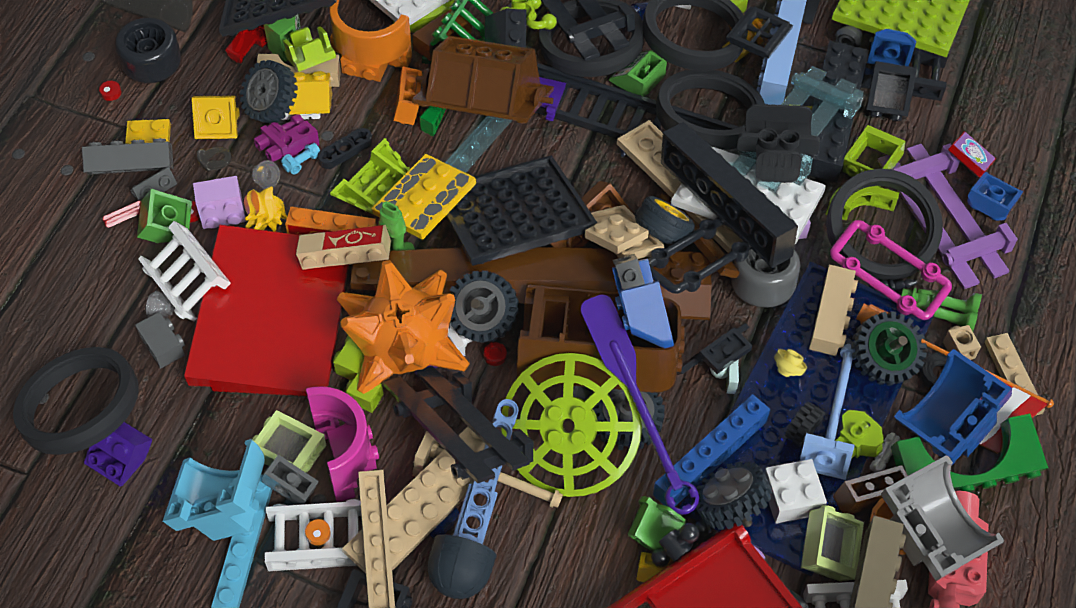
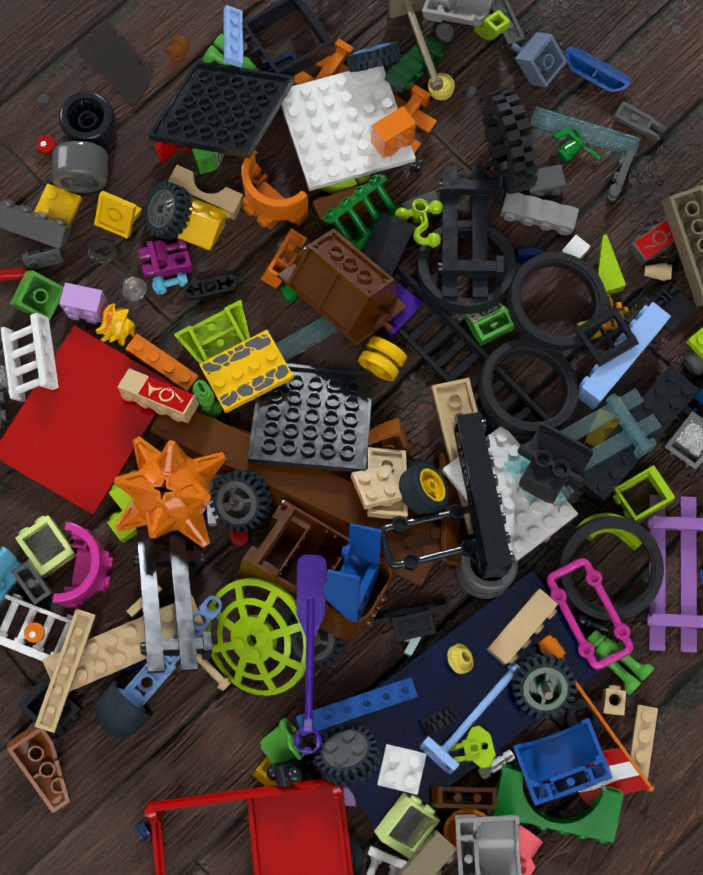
camera: 25 degrees right, 20 degrees up
(158, 86) = (79, 167): none -> dark grey wheel
(306, 51) = (218, 181): lime panel -> none
(555, 135) = (382, 358): none -> yellow wheel
(629, 271) = (362, 532): dark grey bracket -> none

